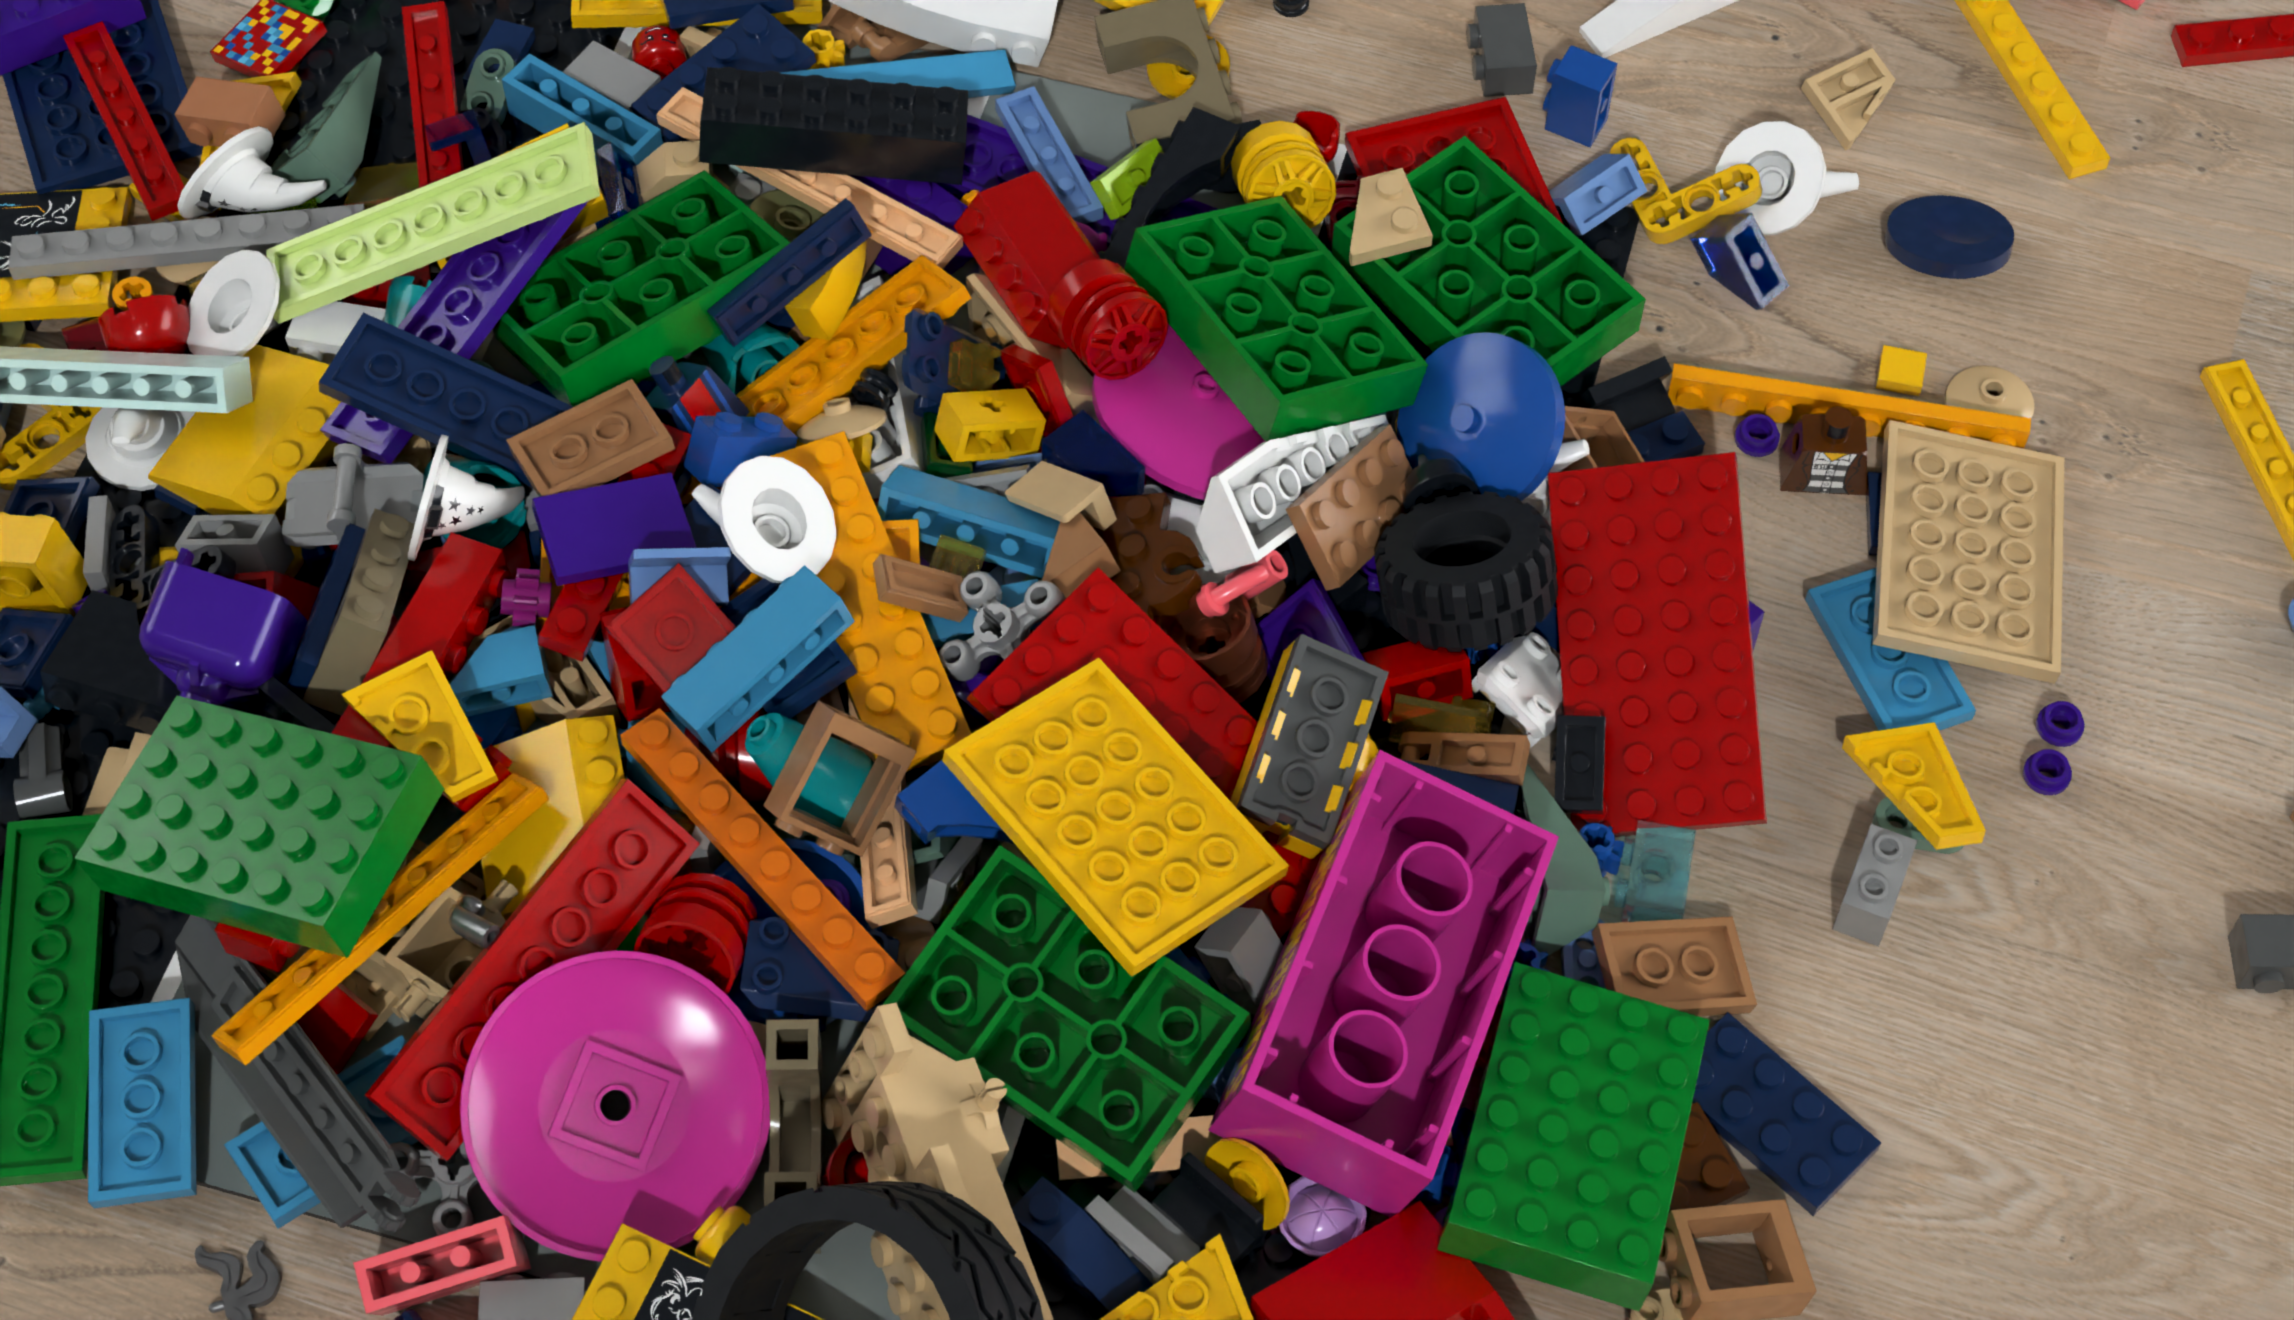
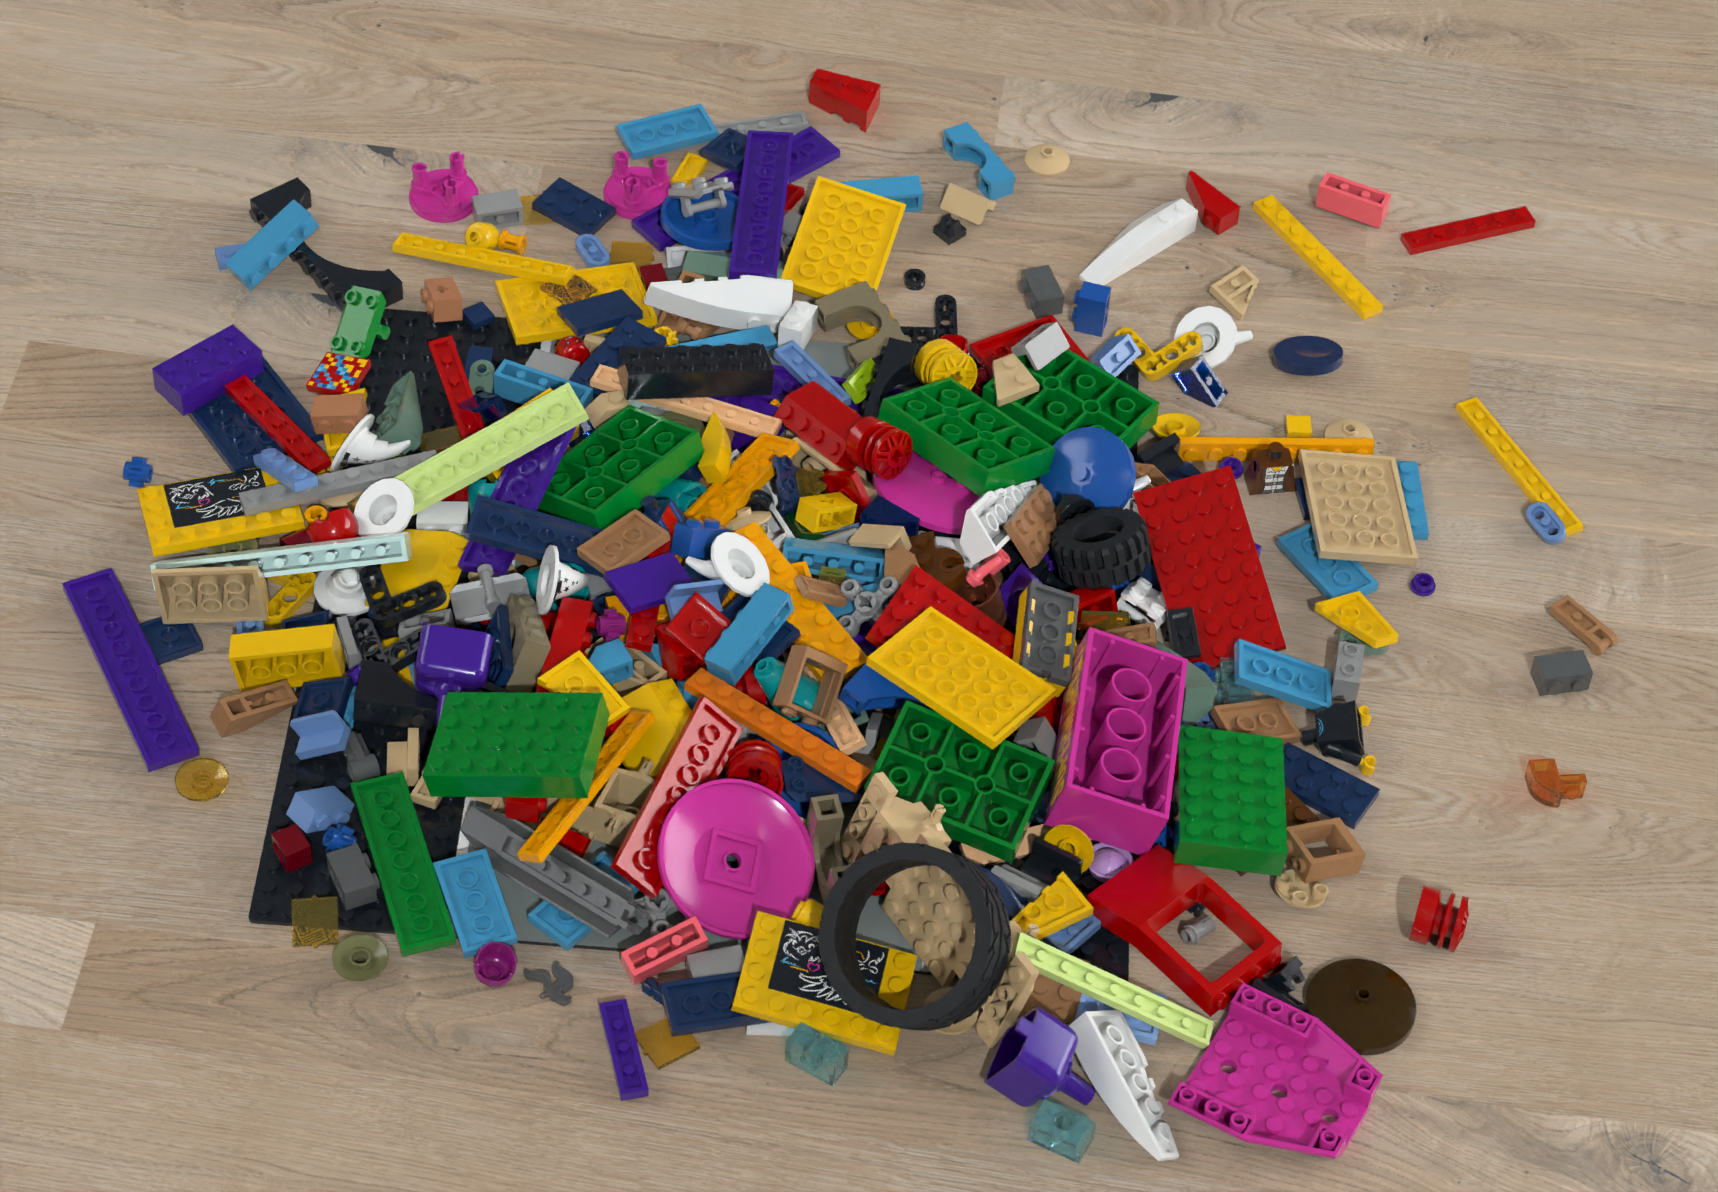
camera: 15 degrees left, 10 degrees down
(101, 206) = (285, 470): none -> medium blue plate
(139, 1235) = (495, 964): none -> magenta hair
(166, 495) = (389, 603): none -> black beam
(468, 921) = (638, 778): flat silver arm -> none
(789, 272) = (699, 447): dark blue tile -> none
(1057, 59) = (798, 324): none -> white brick
(1301, 100) = (940, 315): none -> black beam
(1458, 160) = (1042, 345): none -> panel
(1678, 337) = (1181, 424): none -> yellow dish
(1746, 880) = (1282, 676): none -> dark azure plate
(1831, 1016) = (1341, 734): none -> black torso
(2051, 762) = (1421, 608): dark purple plate -> none
(2081, 545) = (1413, 497): none -> dark azure plate
(2212, 1195) = (1550, 787): none -> clear orange brick

